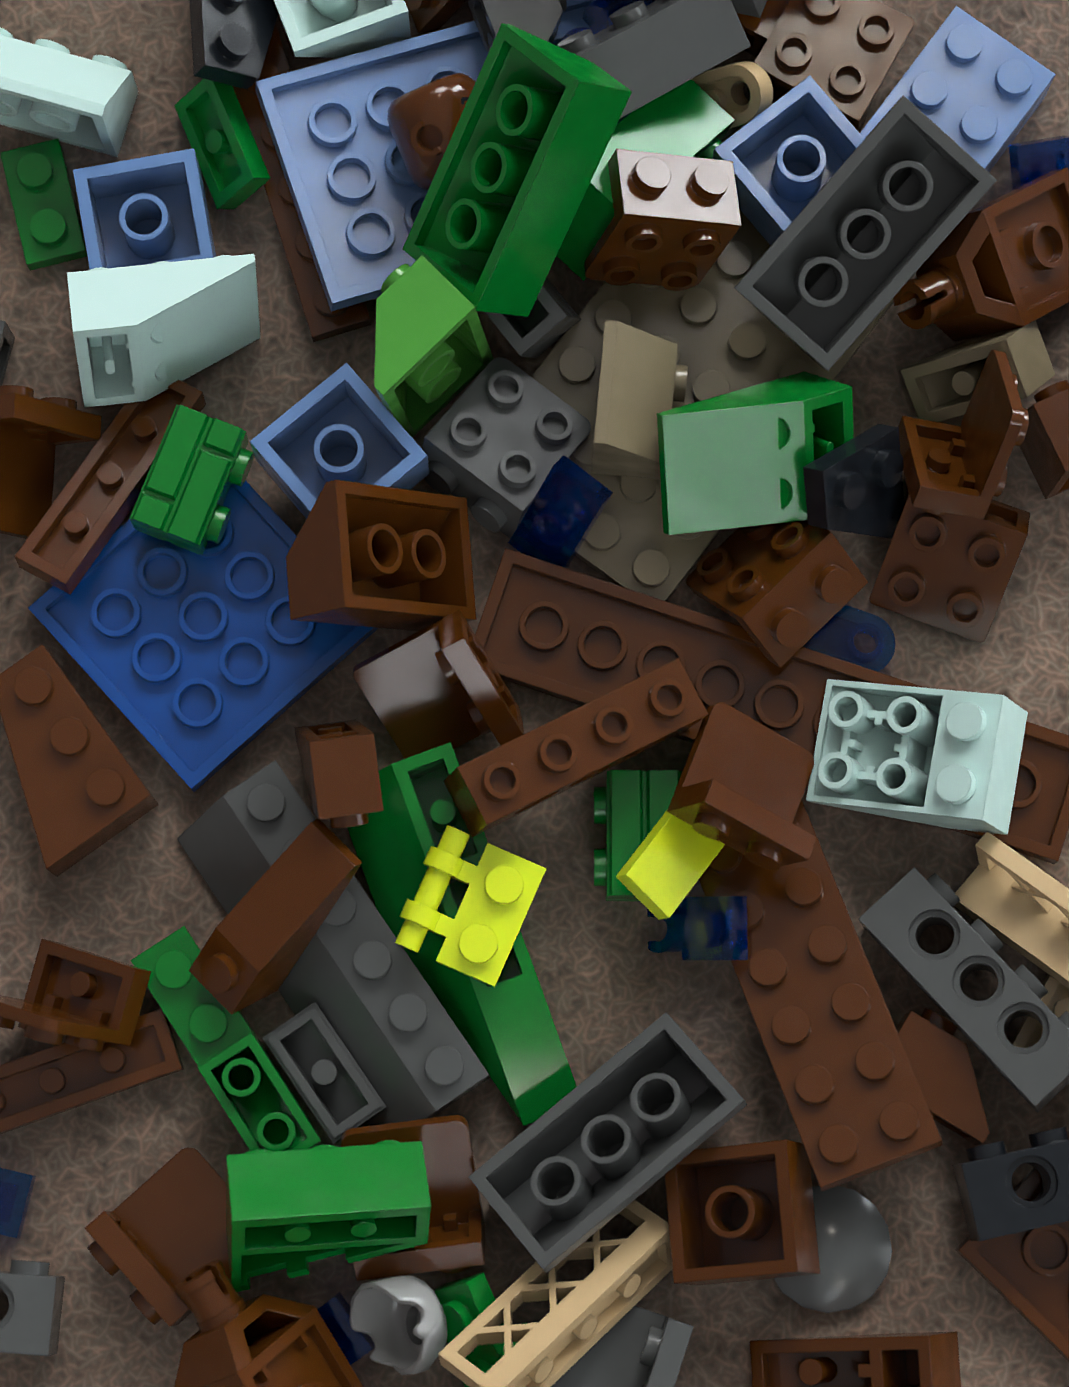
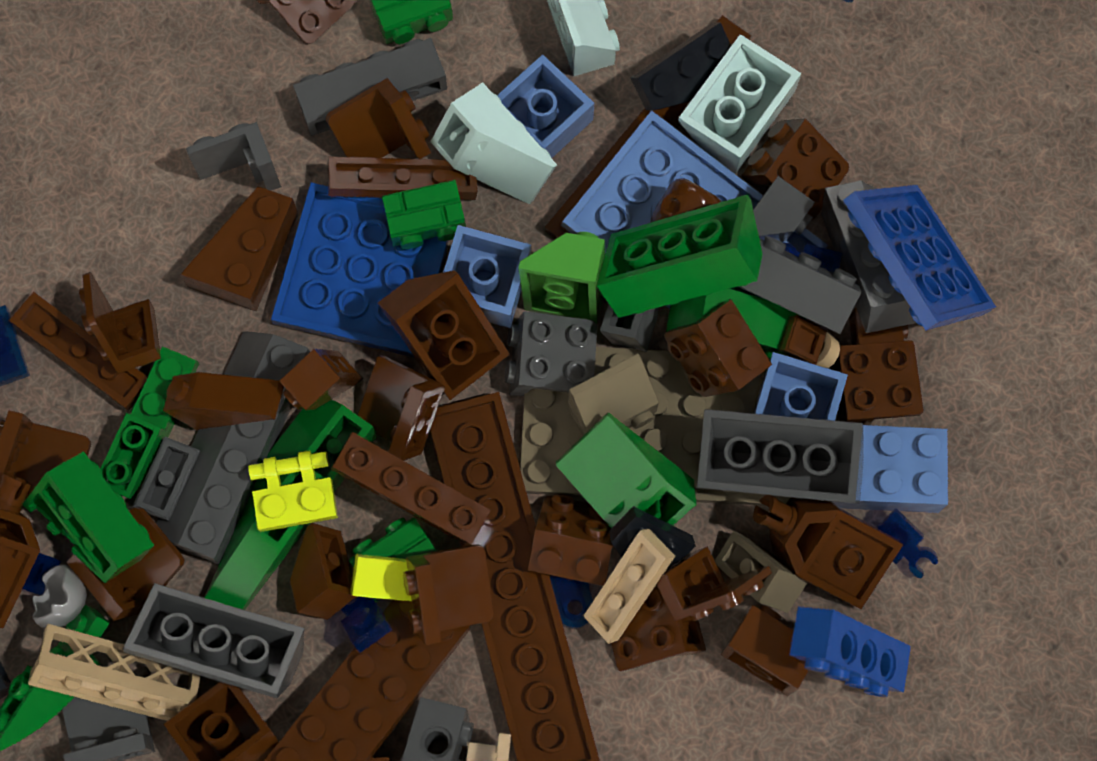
camera: 55 degrees right, 5 degrees down
(43, 204) = (522, 53): green plate -> none
(222, 143) = (612, 119): green plate -> none
(561, 514) = (532, 406): clear blue plate -> none
(601, 944) = (321, 573): none -> reddish brown slope
(719, 102) = (802, 340): none -> reddish brown tile
(898, 546) = (629, 585): none -> tan plate
(918, 754) = (529, 673): light aqua slope -> none

